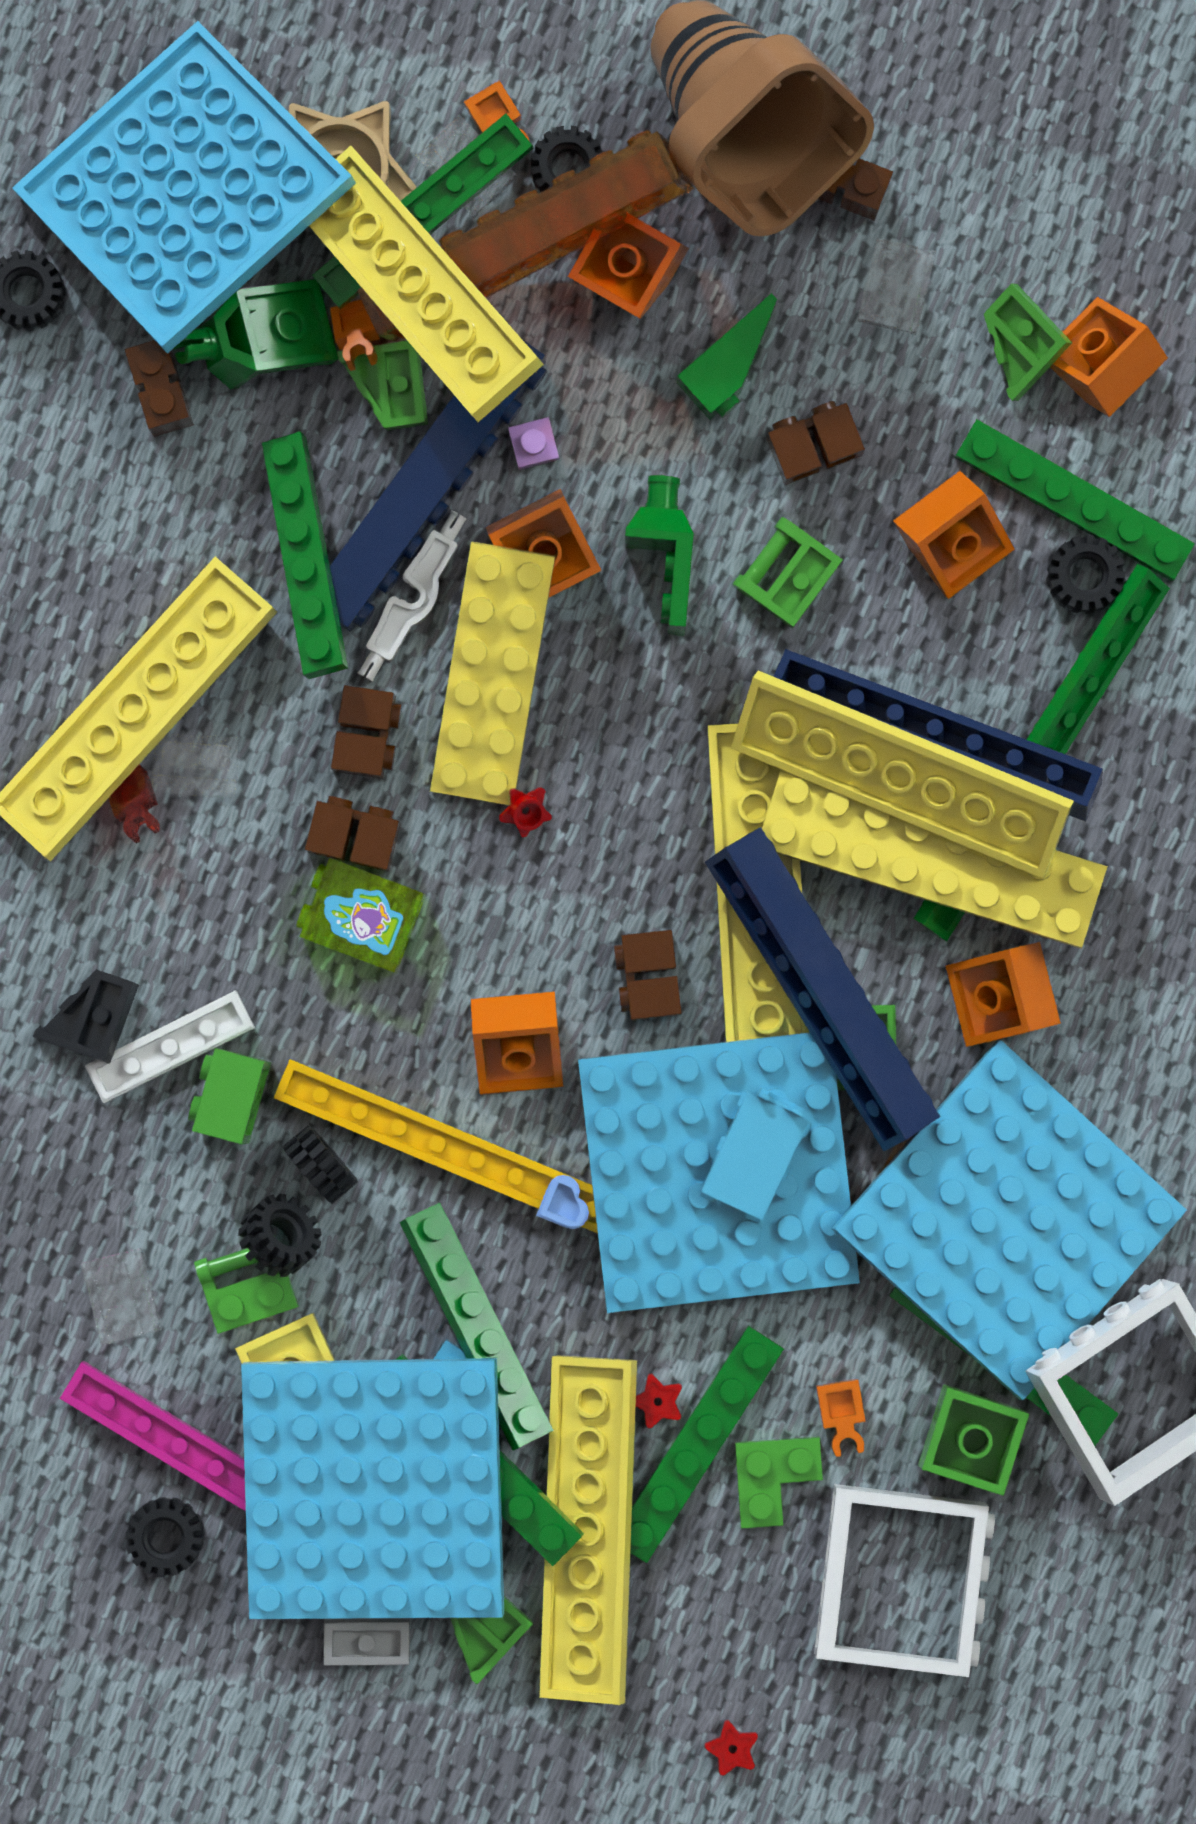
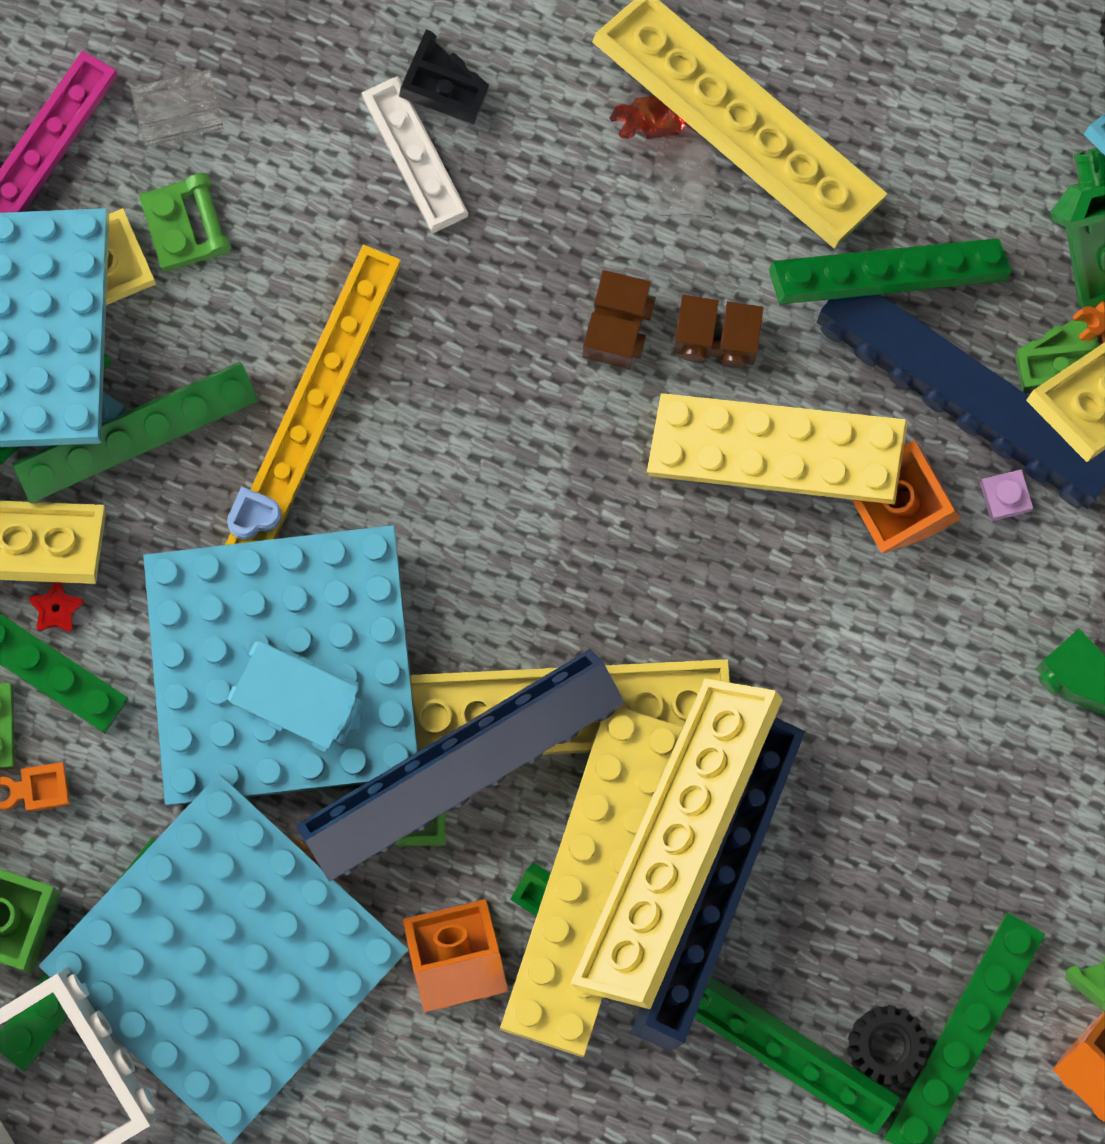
camera: 85 degrees right, 10 degrees down
(161, 401) = (1033, 143): reddish brown piece -> none
(229, 1096) = (364, 200): bright green brick -> none
(266, 1247) = (246, 258): black tyre -> none
(320, 1164) = (297, 284): black tyre -> none
(360, 914) = (538, 327): clear neon green panel -> none
(424, 577) = (832, 367): white piece -> none
(516, 1042) = (413, 472): orange slope -> none
(526, 821) = (631, 484): red plate -> none
(645, 954) = (499, 599): reddish brown piece -> none
(666, 528) = (924, 617): green plate -> none
(799, 580) = (876, 753): bright green plate -> none
(834, 434) = (1008, 748): reddish brown piece -> none
(954, 534) = (925, 909): orange slope -> none

